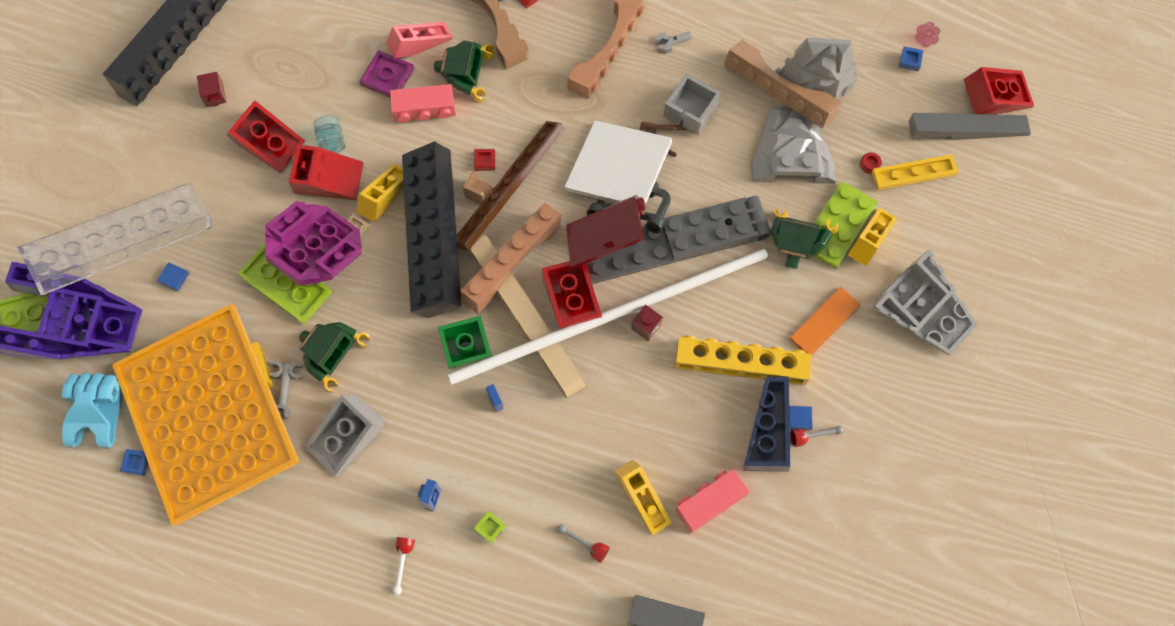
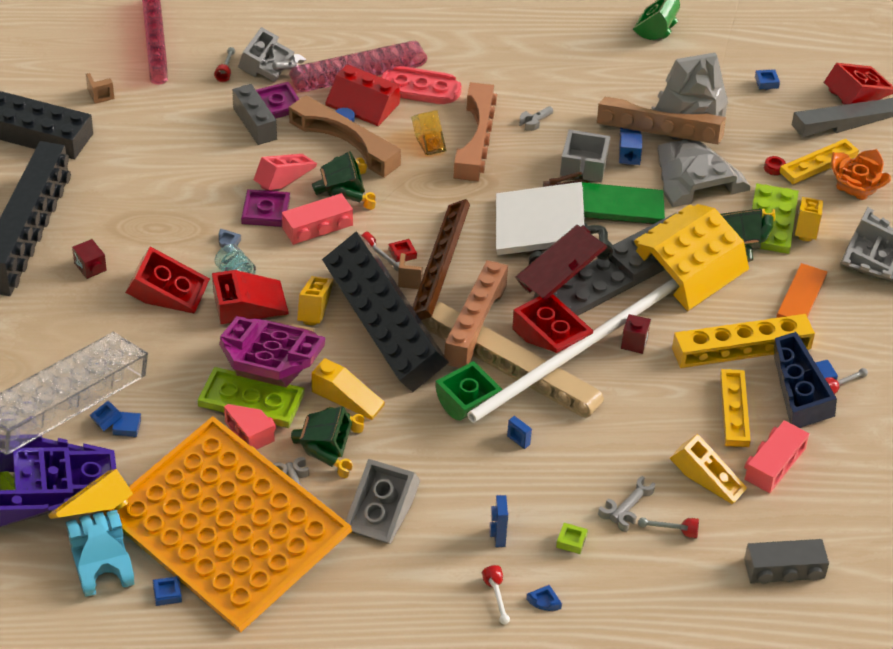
camera: 20 degrees left, 25 degrees down
(100, 360) = (102, 494): none -> yellow slope
(157, 264) = (106, 415): none -> blue tile
(269, 316) = (250, 425): none -> coral slope
(340, 102) = (228, 237): none -> sand blue tile
(367, 302) = (343, 388): none -> yellow slope
(440, 580) = (544, 599): none -> blue tile
(456, 142) = (371, 239): none -> hinge
(544, 513) = (622, 513): none -> light grey bar
(563, 33) = (429, 132): none -> clear yellow slope
(700, 433) = (735, 408): none -> yellow plate
(705, 165) = (623, 203): none -> green tile
(739, 250) = (696, 251): none -> yellow slope
(742, 102) = (630, 146): none -> blue piece
(923, 34) = (767, 54): clear pink plant -> none
(955, 194) = (859, 175): none -> orange brick

